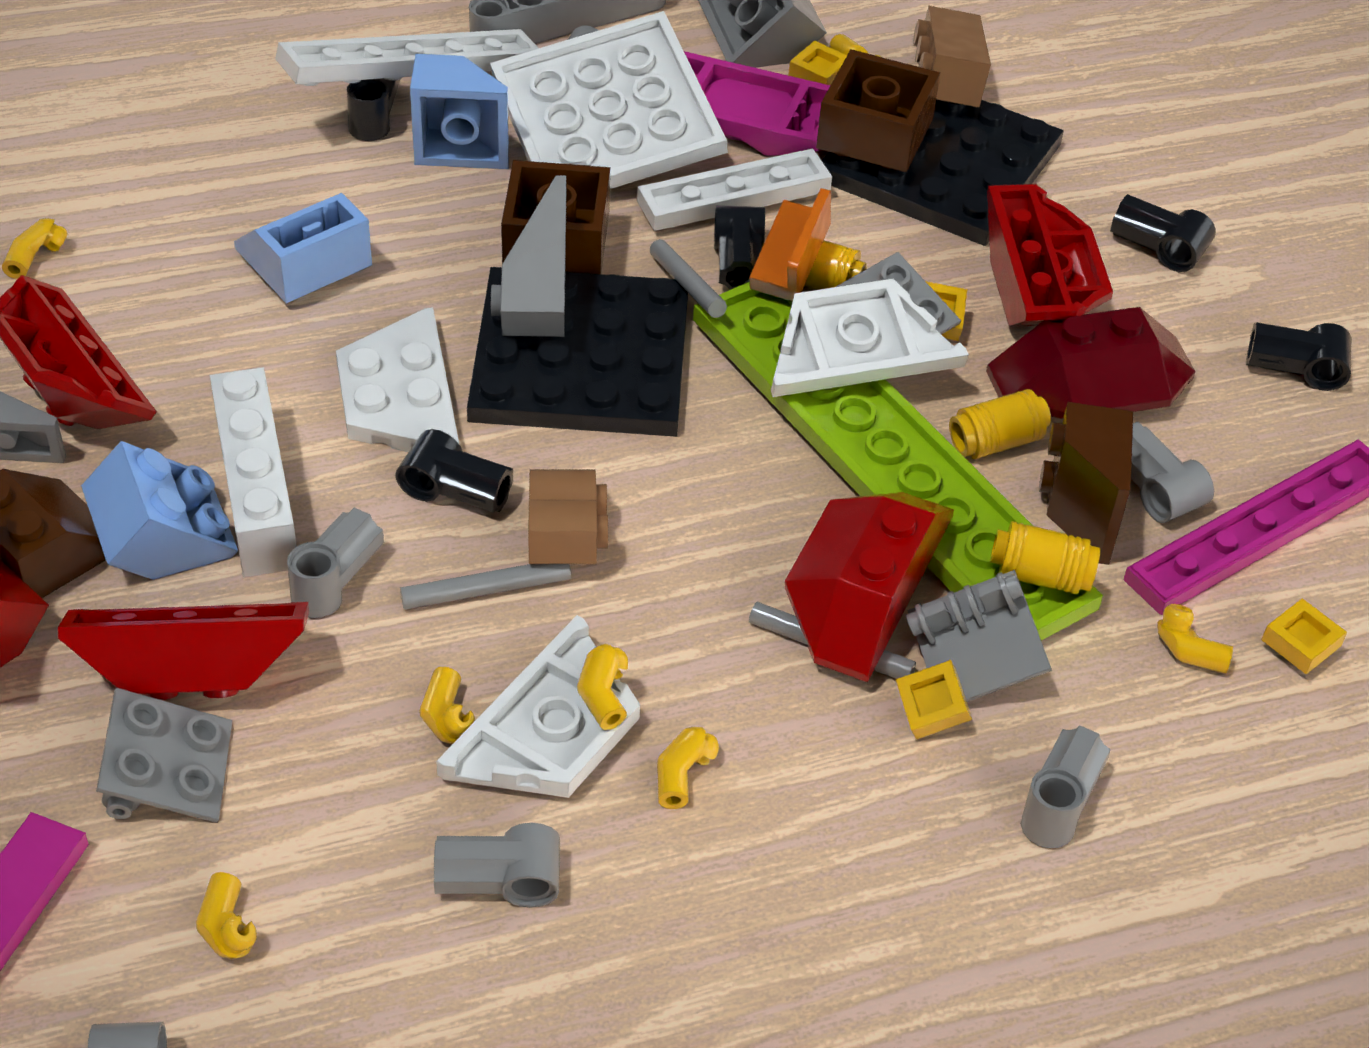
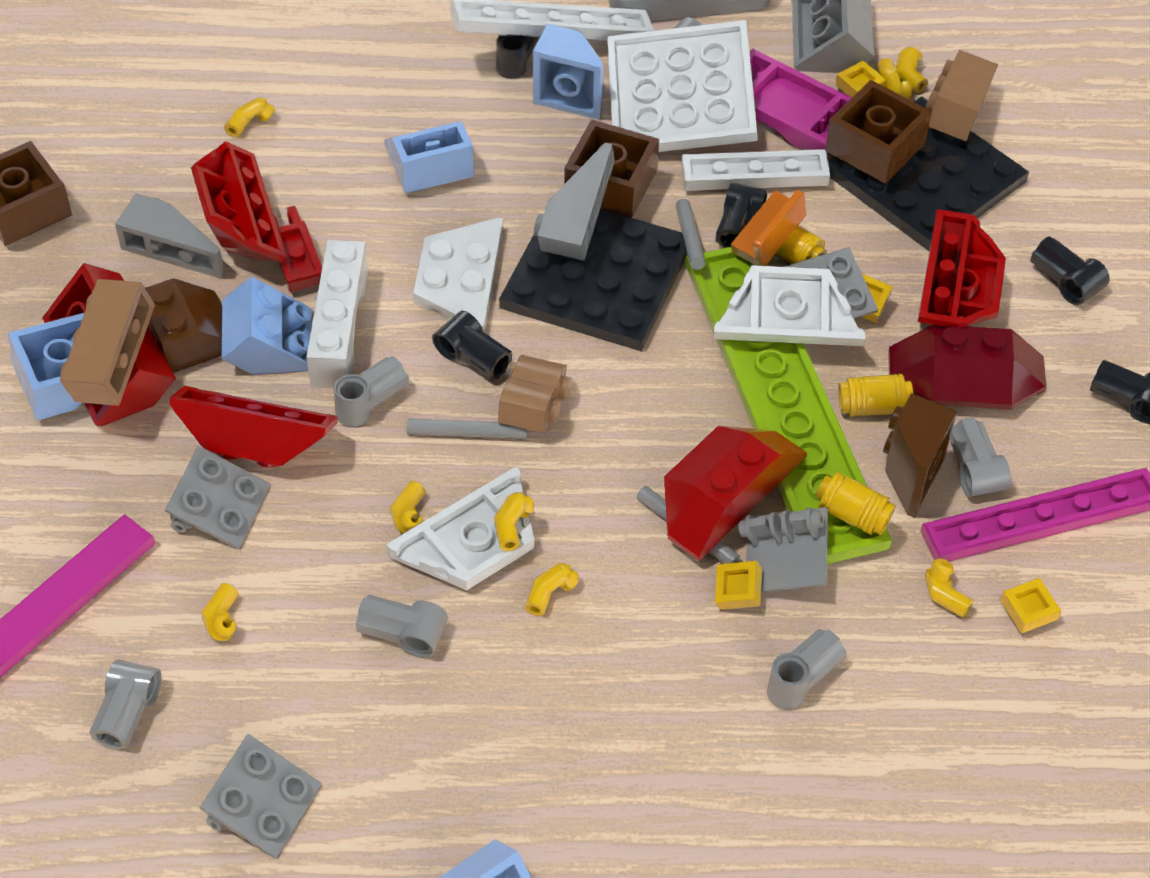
camera: 20 degrees right, 5 degrees up
(179, 419) = (302, 266): none -> red hinge
(866, 33) = (907, 68): none -> yellow arm

